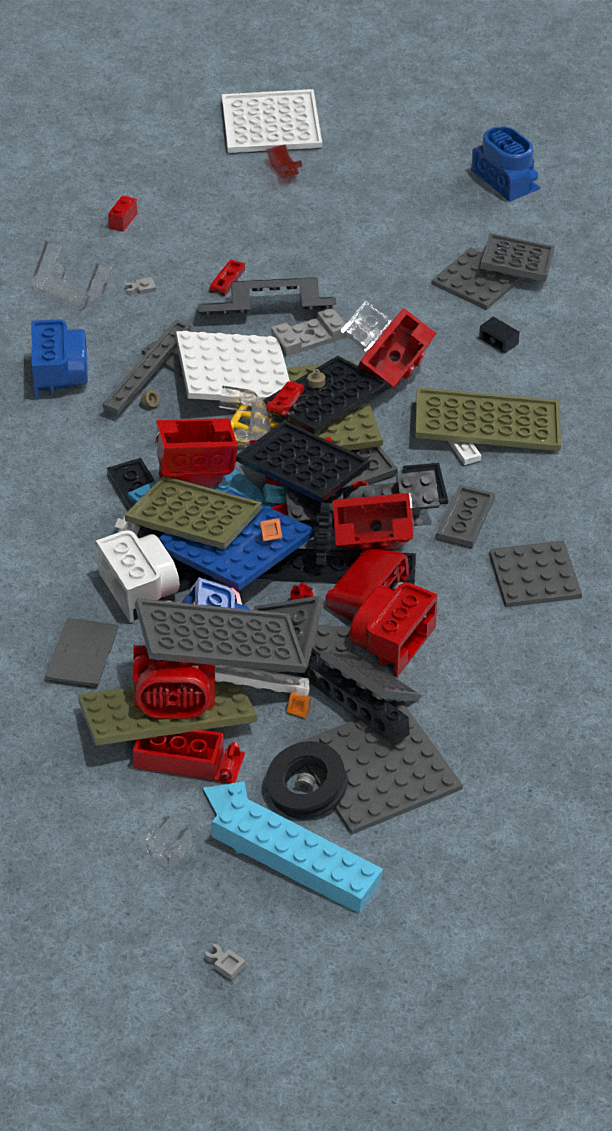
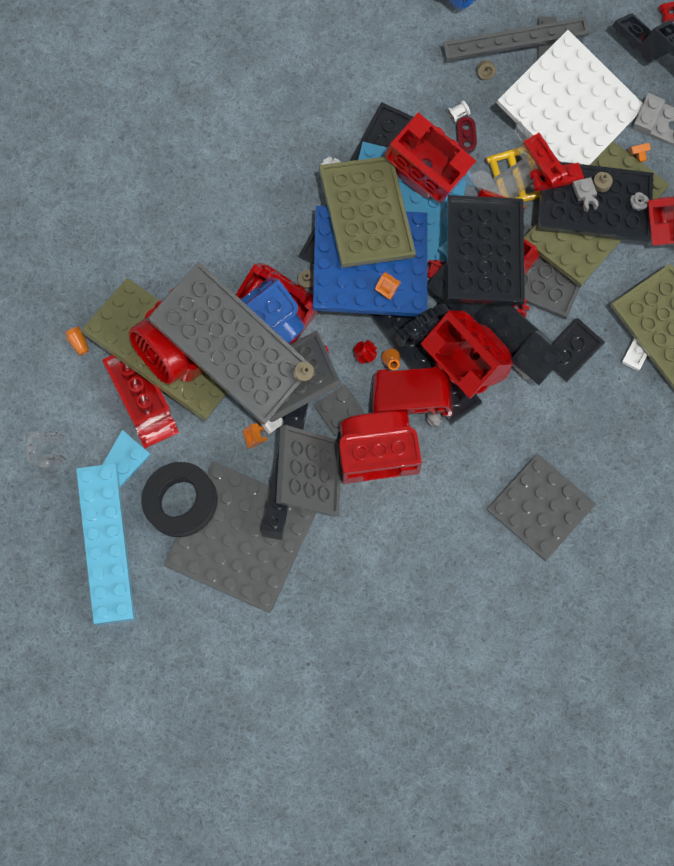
camera: 50 degrees right, 30 degrees up
(82, 652) = (182, 241): dark grey piece -> none
(92, 769) = (77, 340): none -> orange cone
(136, 569) = (278, 218): white brick -> none
(269, 388) = (544, 159): none -> red plate
(288, 617) = (303, 371): none -> dark tan tile
(305, 782) = (181, 498): light grey bush -> none
(310, 357) = (639, 151): none -> orange tile
(314, 391) = (585, 191): none -> light grey plate
(325, 582) = (391, 358): none -> orange cone
(353, 370) = (639, 205): none -> light grey plate
(465, 516) = (560, 408): dark grey plate -> none

